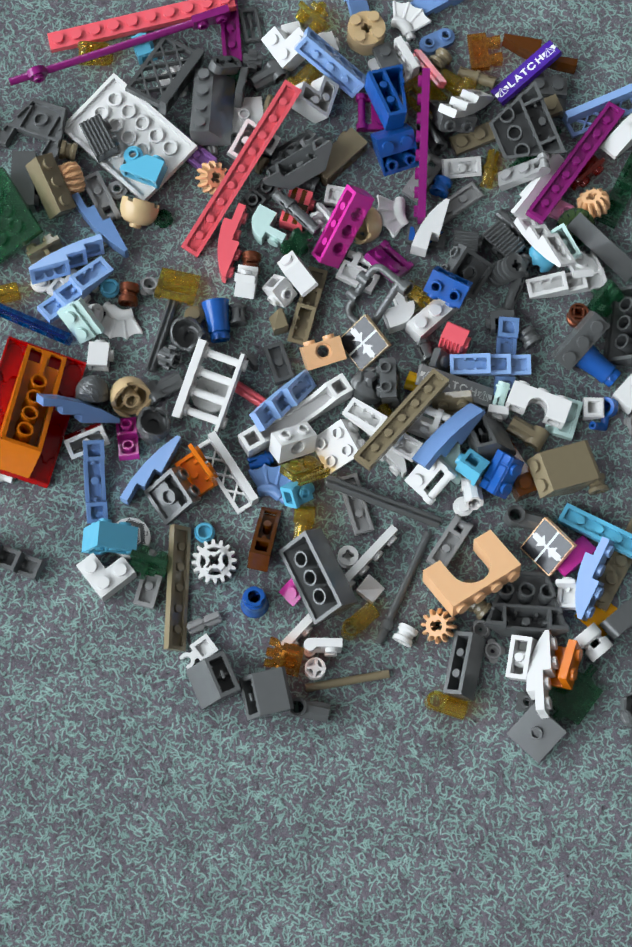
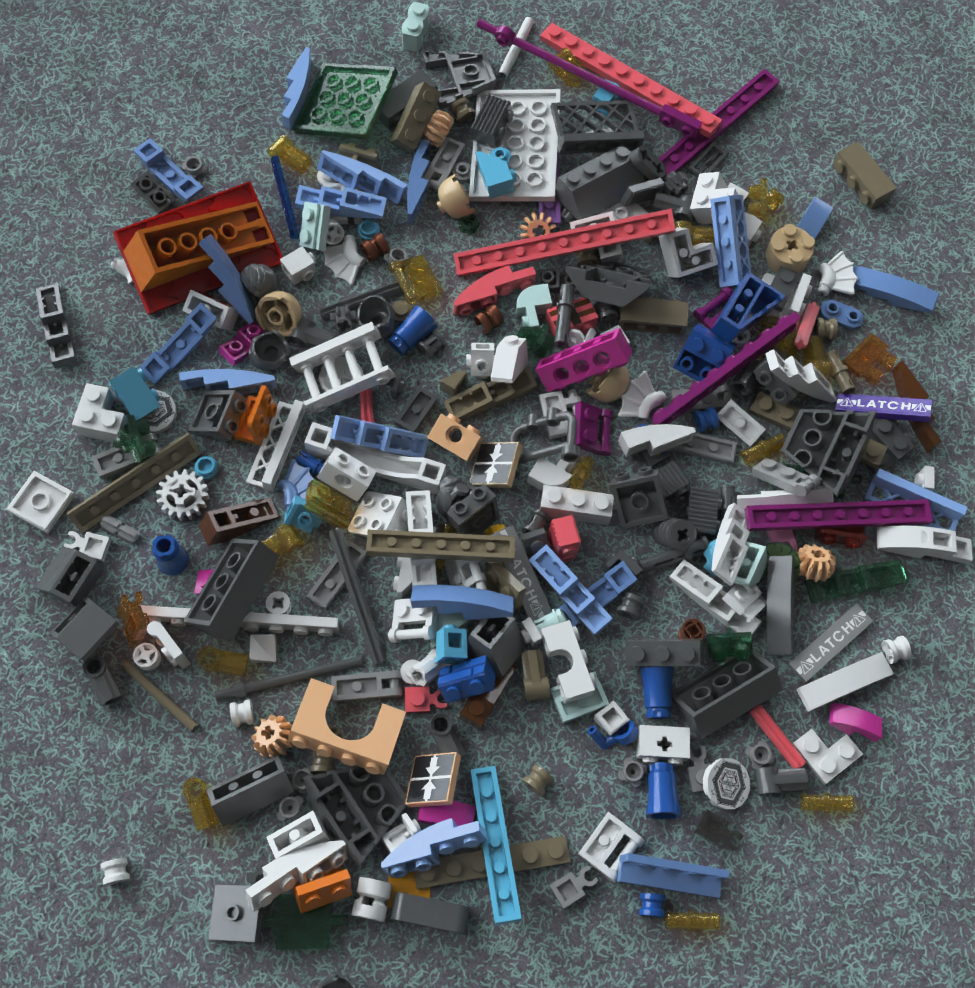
camera: 50 degrees right, 5 degrees down
(49, 81) = (514, 50): none -> white piece
(138, 662) = (40, 502): none -> white plate
(246, 281) = (465, 326): white brick -> none
(447, 287) = (604, 489): blue brick -> none
(449, 791) = (115, 871): none -> white wheel
(485, 516) = (419, 700): none -> coral plate
(564, 469) = (519, 734): dark tan slope -> none
(592, 90) = (925, 478): none -> white plate

